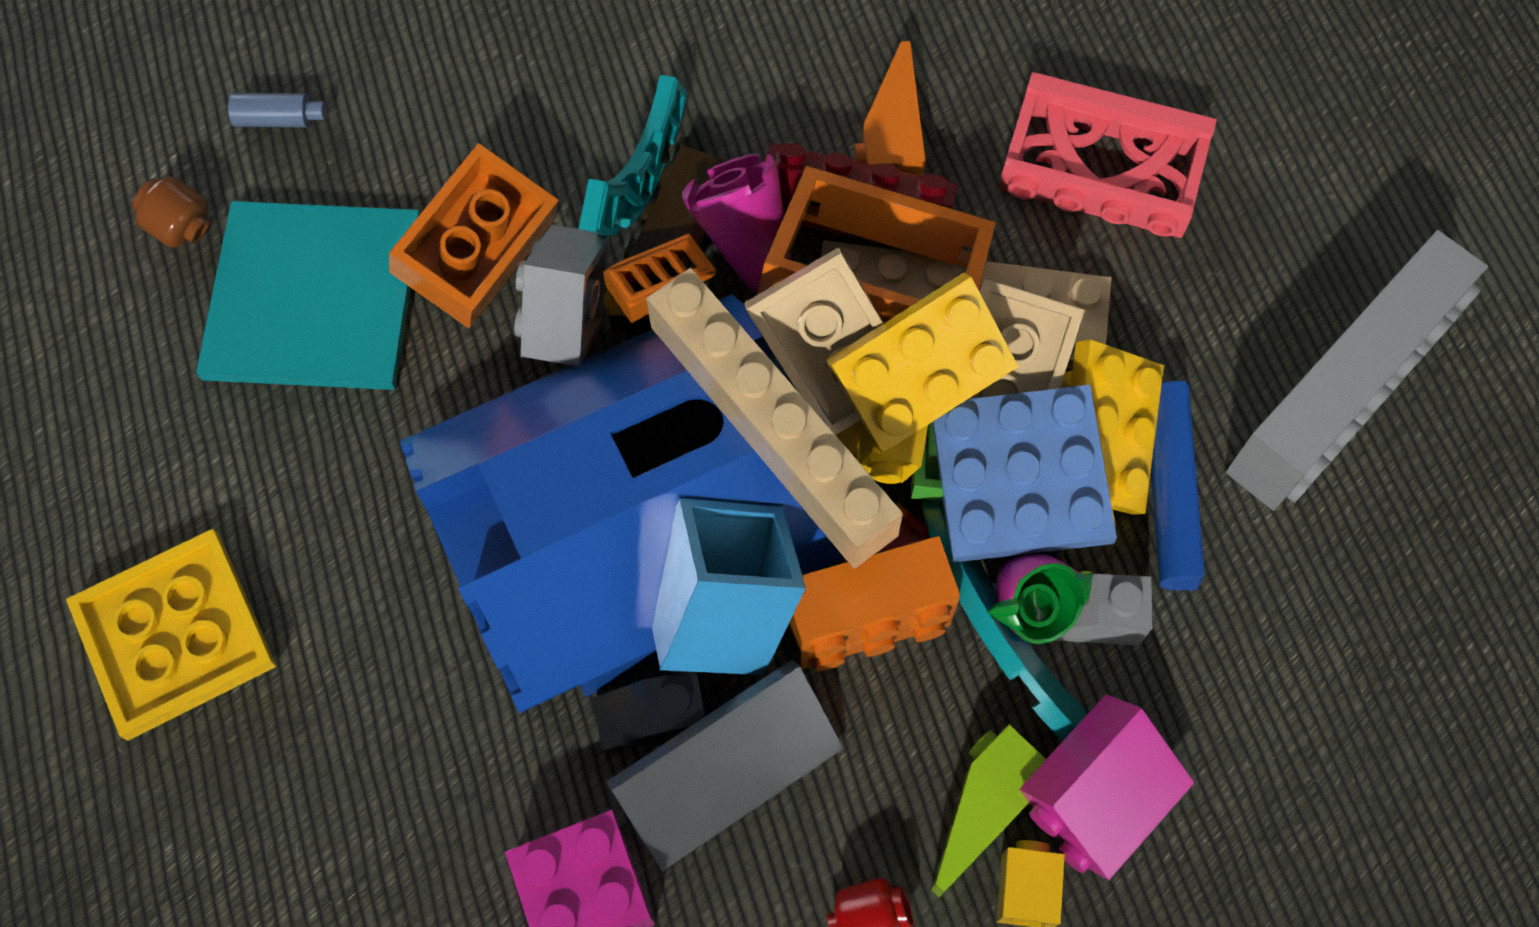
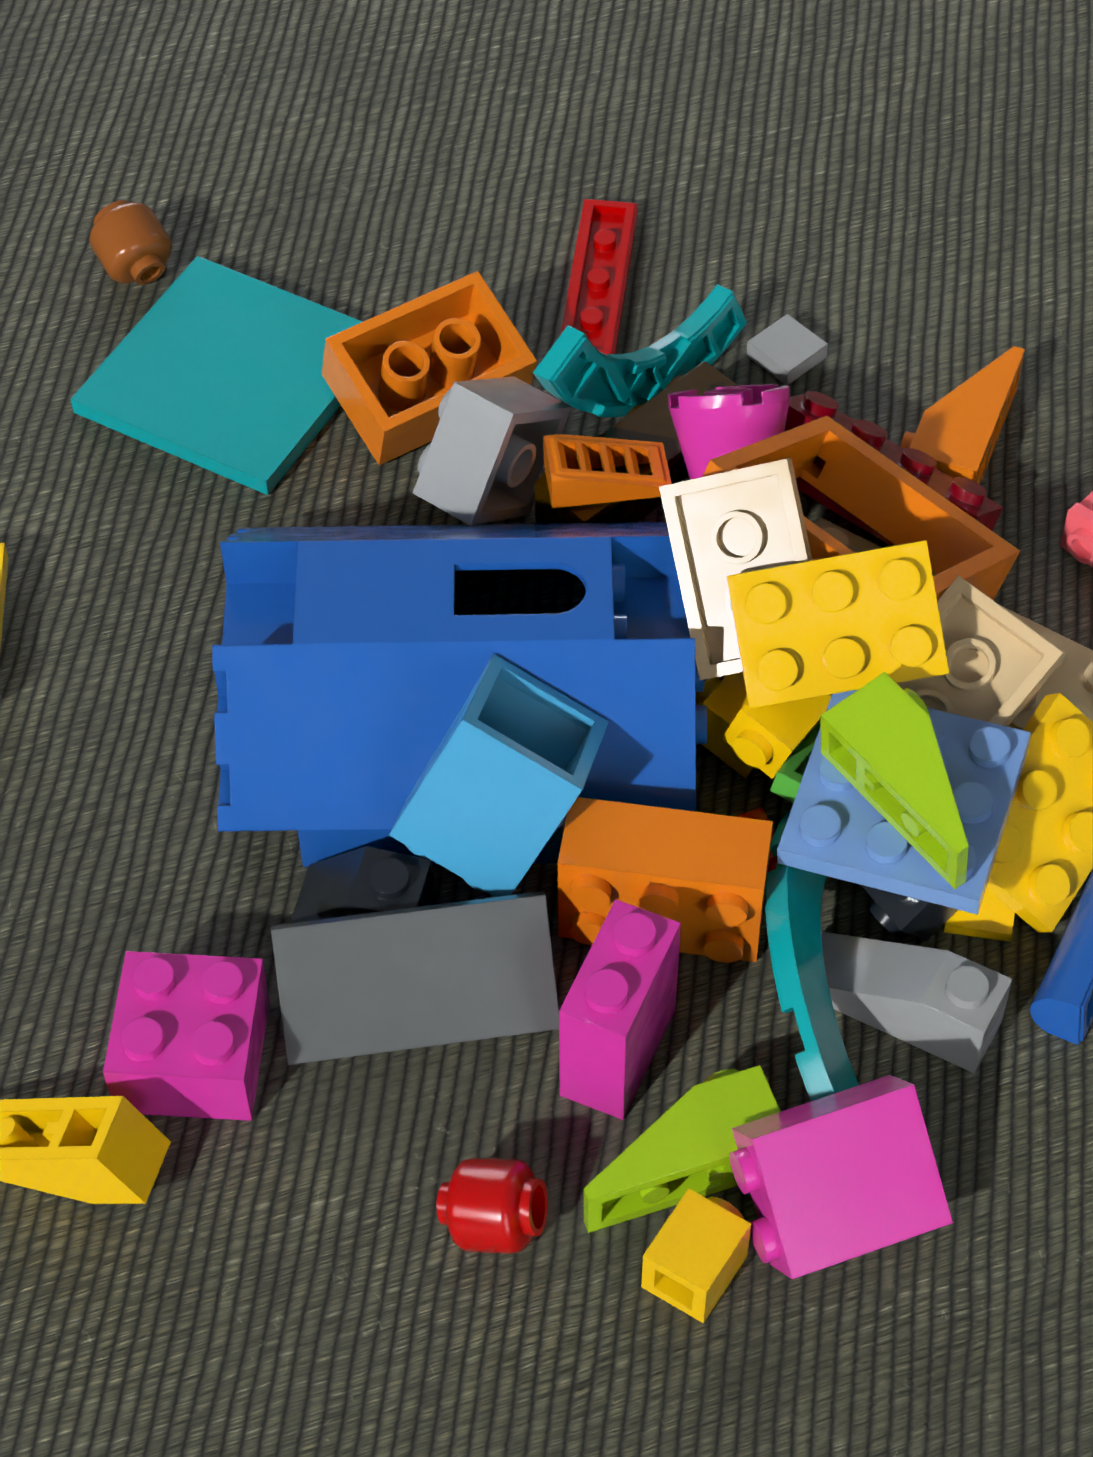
camera: 25 degrees right, 15 degrees down
(274, 110) = (290, 189): sand blue cylinder -> none
(558, 102) = (601, 271): none -> red tile
(727, 103) = (786, 349): none -> light grey tile
(774, 418) = (635, 608): tan brick -> none
(894, 728) = (618, 1009): none -> dark pink brick
(1021, 461) = (891, 755): none -> lime slope
(1040, 596) = (862, 940): green hat -> none

